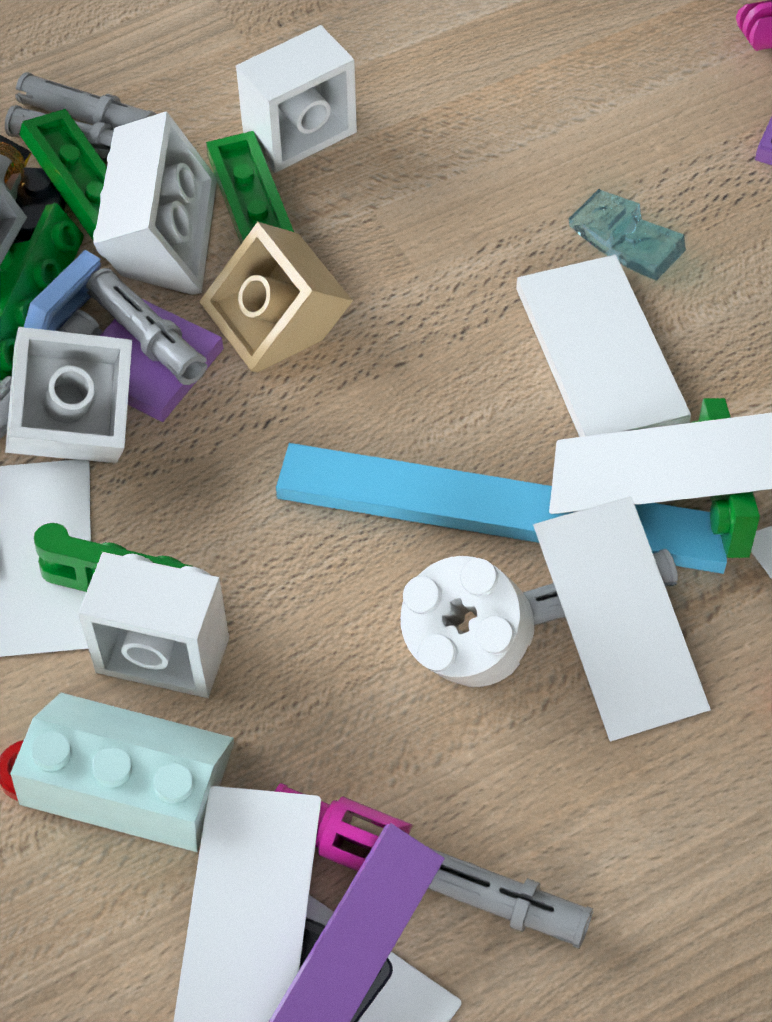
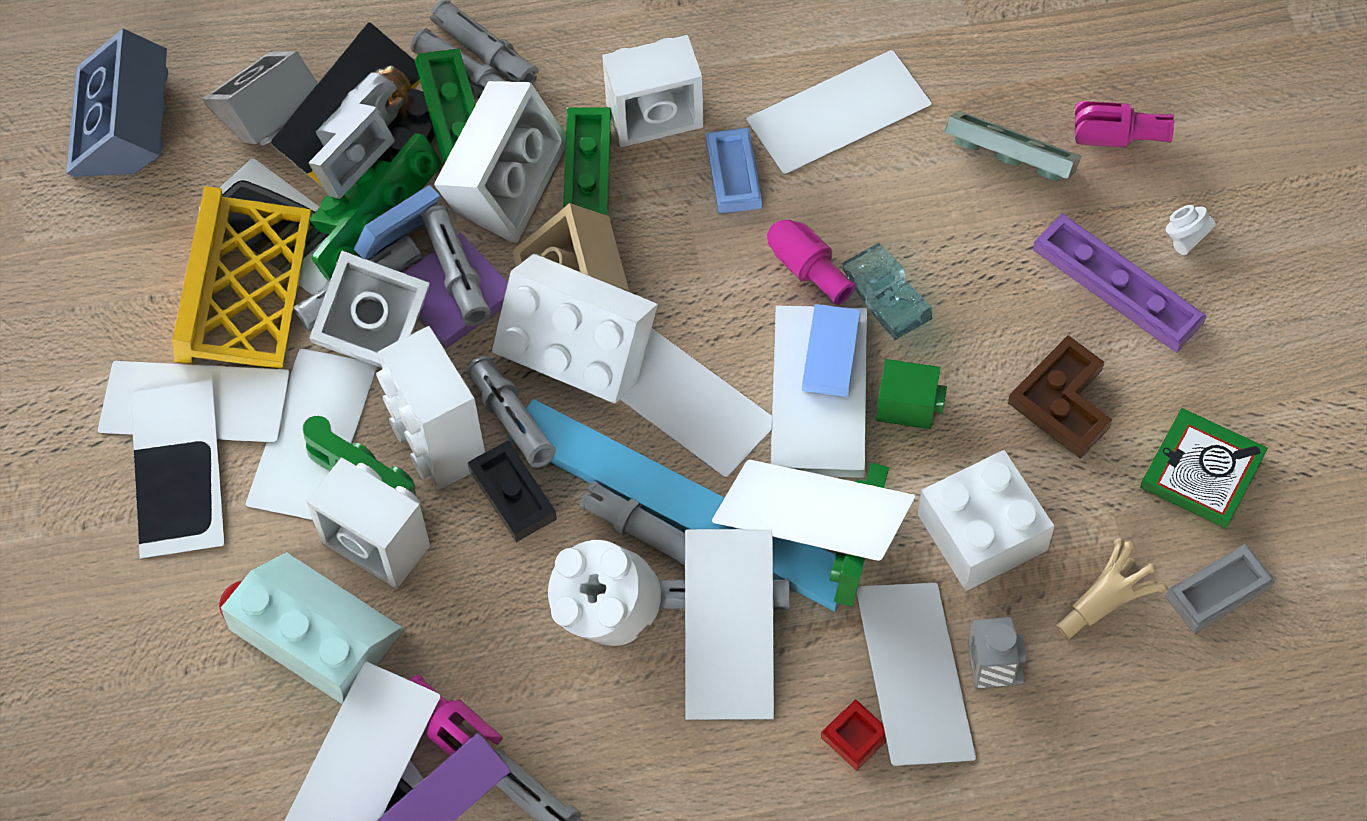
camera: 20 degrees right, 5 degrees up
(187, 472) = (430, 407): none -> white brick
(253, 450) = (488, 379): none -> light grey pin
(305, 547) = (512, 491): none -> black plate
(312, 349) = (574, 328): none -> white brick
(409, 162) = (733, 170): none -> light blue tile
(453, 401) = (696, 406): none -> white sticker
(464, 539) = (631, 519): none -> light grey pin
(492, 83) = (838, 111): none -> white sticker
(533, 221) = (809, 258): none -> dark pink arm
(601, 303) = (831, 350): none -> light blue tile
(692, 67) = (1012, 146): none -> plate
(703, 324) = (910, 394): none -> green brick

